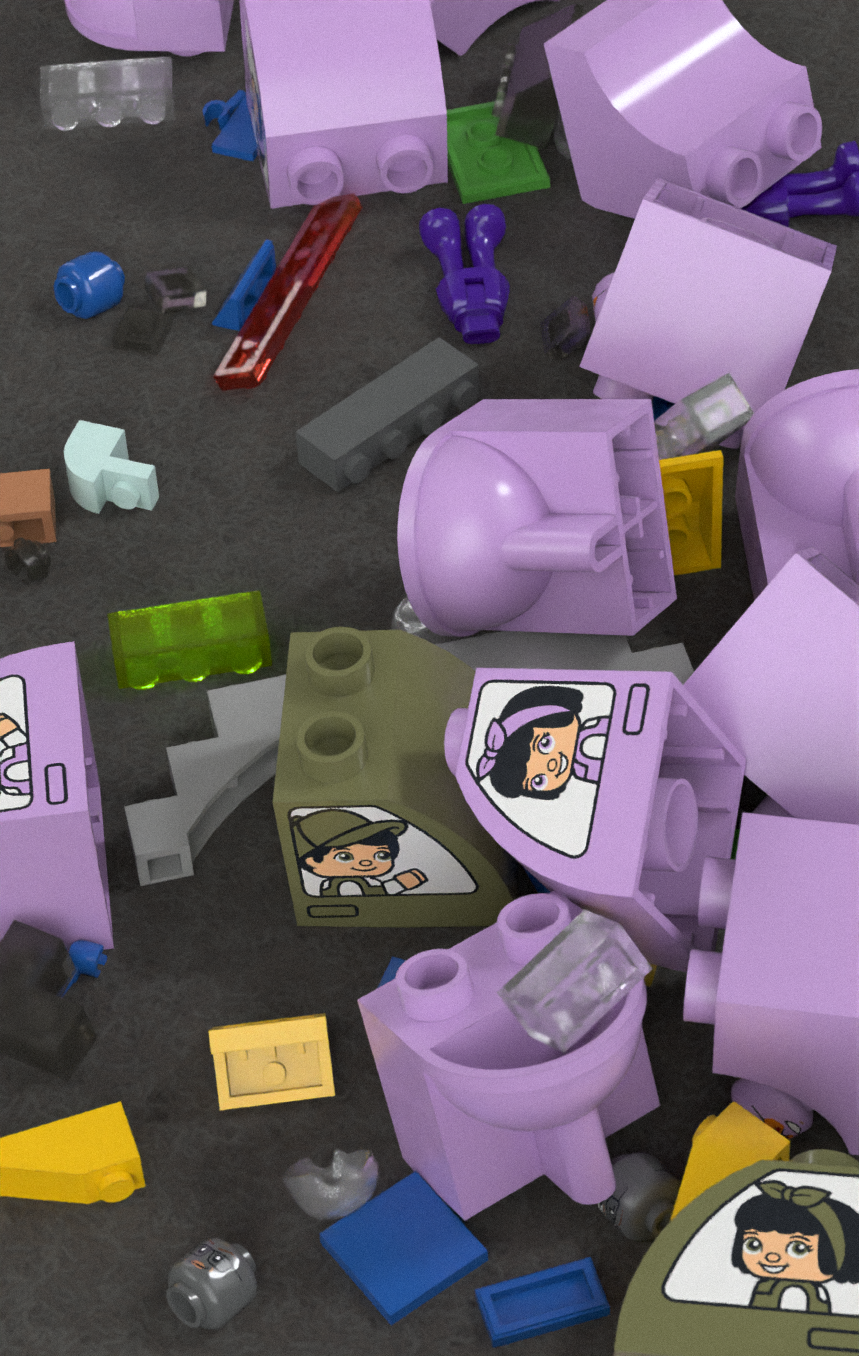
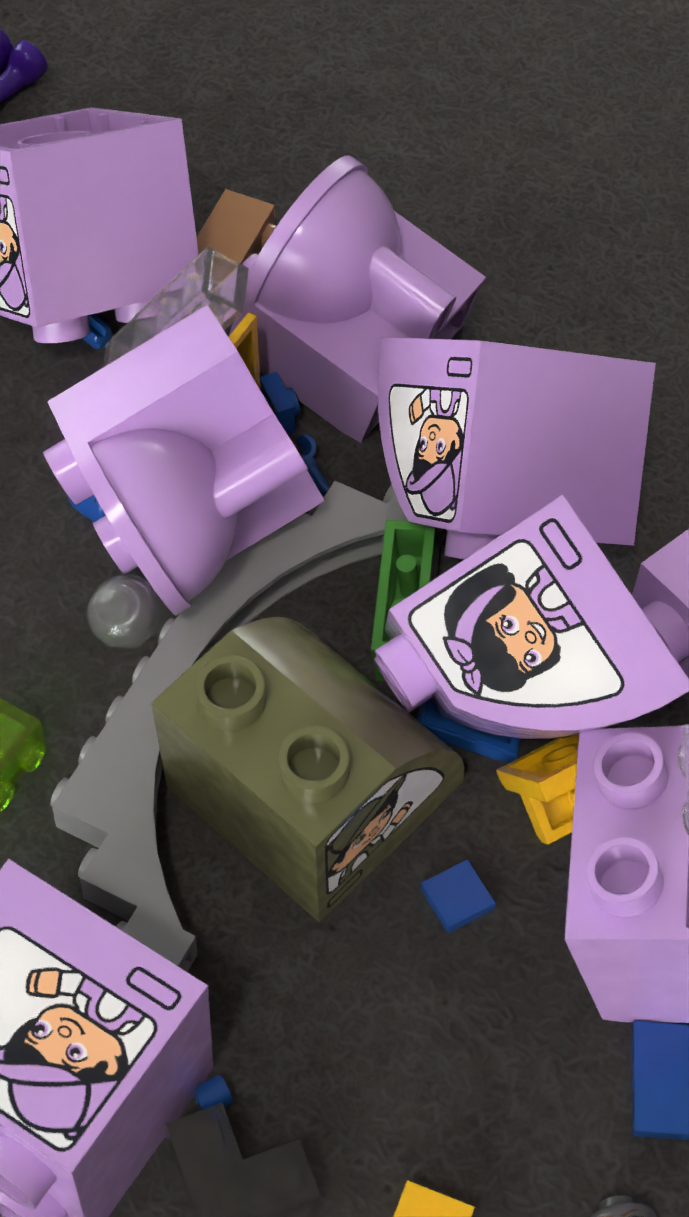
camera: 55 degrees left, 10 degrees up
(272, 1061) = (444, 1033): yellow bracket -> none
(333, 1190) = (618, 1074): clear hair -> none
(697, 628) = (308, 448): none -> blue hand
(725, 568) = (281, 400): none -> blue plate

